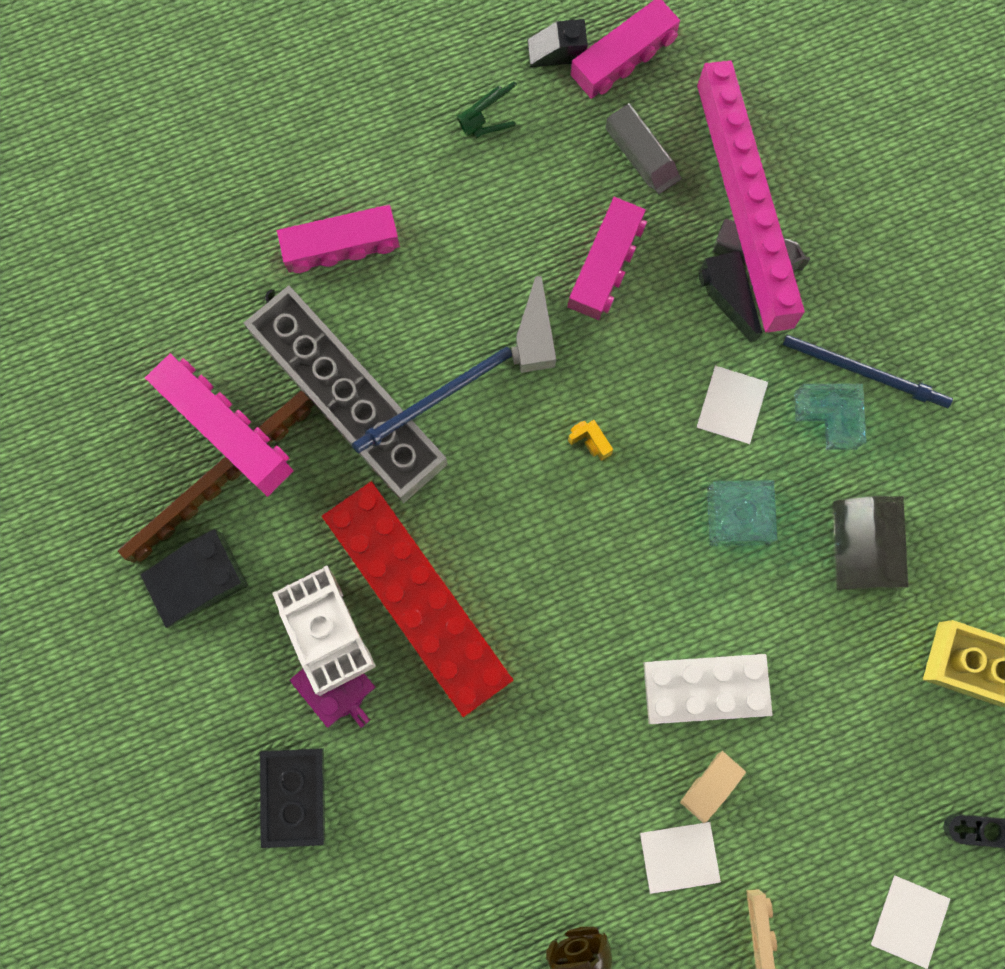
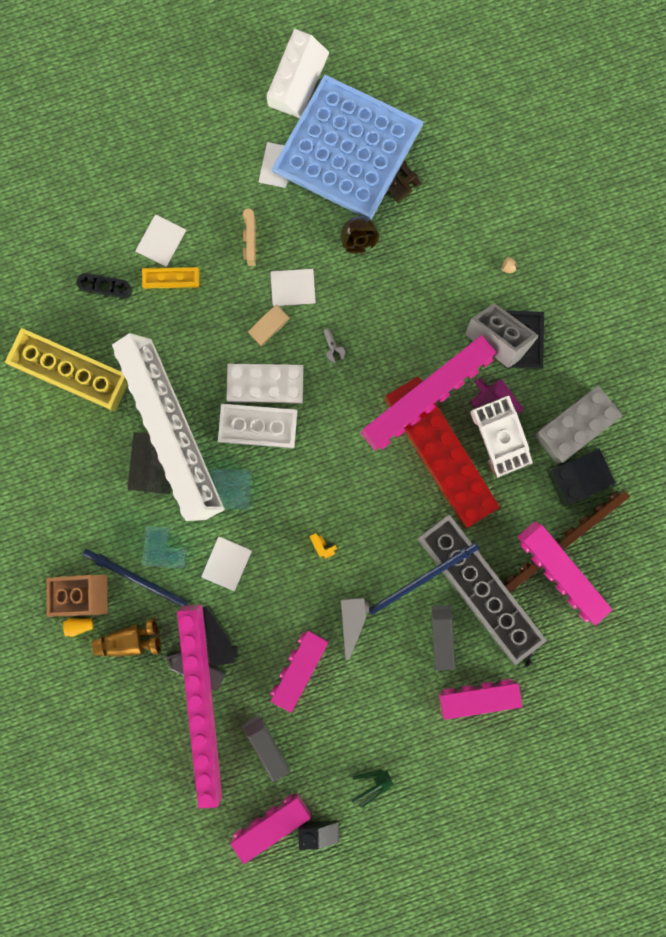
camera: 175 degrees left, 5 degrees up
(200, 661) = (578, 425): none -> light grey brick
(322, 926) = (509, 265): none -> tan hinge
(331, 800) = (503, 333): none -> light grey slope
(398, 319) = (443, 638): none -> dark grey piece
(447, 685) = (427, 393): none -> dark pink brick
(604, 760) = (333, 347): none -> light grey bar
(711, 617) = (257, 426): none -> white plate
(859, 599) = (167, 428): none -> white brick
(866, 280) = (127, 642): none -> pearl gold piece
(884, 856) = (170, 277): none -> yellow tile
(942, 295) = (76, 626): none -> yellow cone
(949, 337) = (77, 595): none -> medium nougat slope

